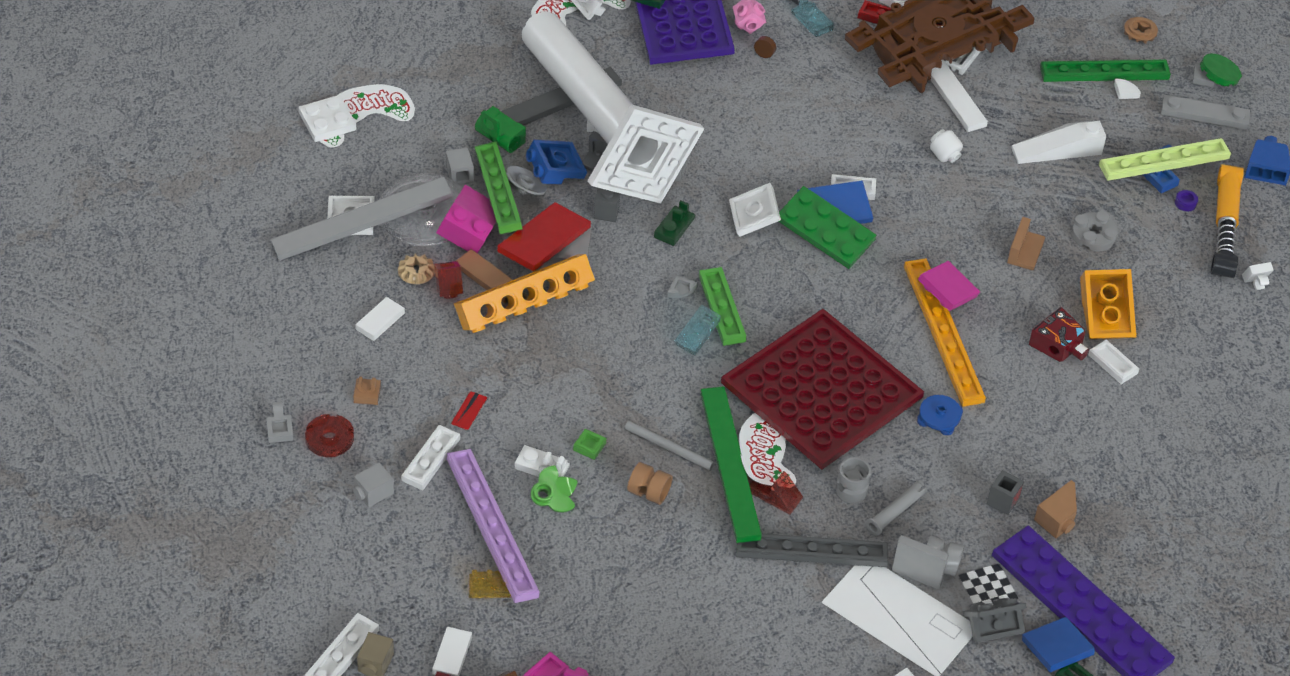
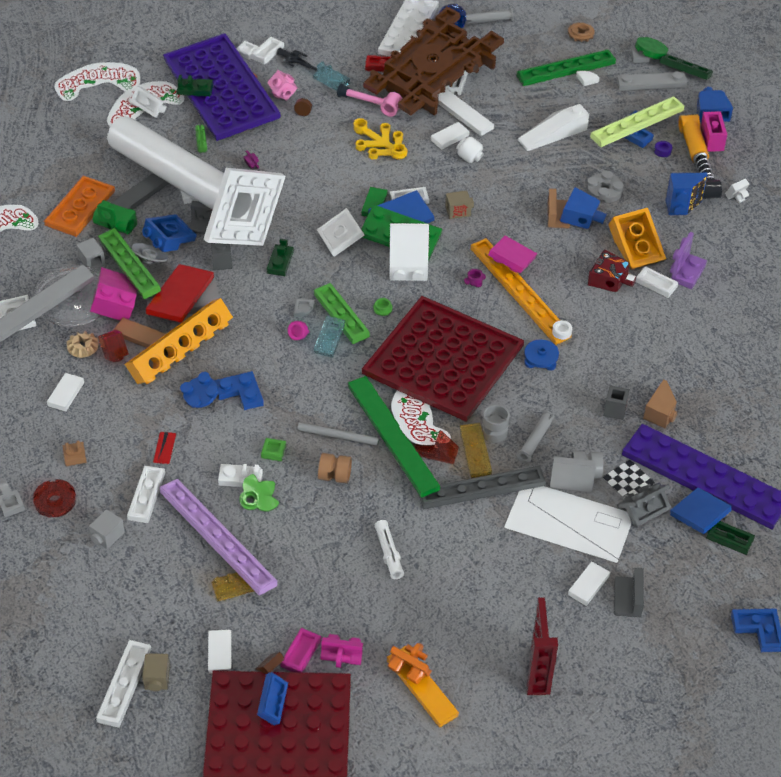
camera: 15 degrees left, 0 degrees up
(464, 105) = (79, 206): none -> orange tile
(529, 355) = (200, 391): none -> blue piece
(580, 362) = (241, 385): none -> blue plate
(632, 57) = (201, 138): none -> bright green axle
(664, 313) = (297, 330): none -> dark pink tile
(678, 614) = (391, 556): none -> white pin
(681, 97) = (251, 160): none -> magenta plate
(773, 310) = (382, 307): none -> bright green plate
(812, 177) = (375, 196): none -> green tile
(819, 505) = (475, 450): none -> clear yellow plate
(823, 253) = (408, 252): none -> white slope
(859, 126) = (396, 151): none -> yellow plant
(867, 67) = (388, 104): none -> bright pink piece
(895, 302) = (475, 278): none -> magenta plate
(908, 210) = (458, 204): none -> dark tan brick
(929, 122) = (449, 135): none -> white tile
(974, 390) = (562, 329): none -> white tile
(1054, 252) = (582, 210): none -> blue torso
(1155, 351) = (686, 267): none -> medium lavender bracket
(1189, 261) = (685, 192): none -> blue slope
(1255, 193) = (713, 131): none -> dark pink brick
(1256, 104) = (686, 66): none -> dark green tile

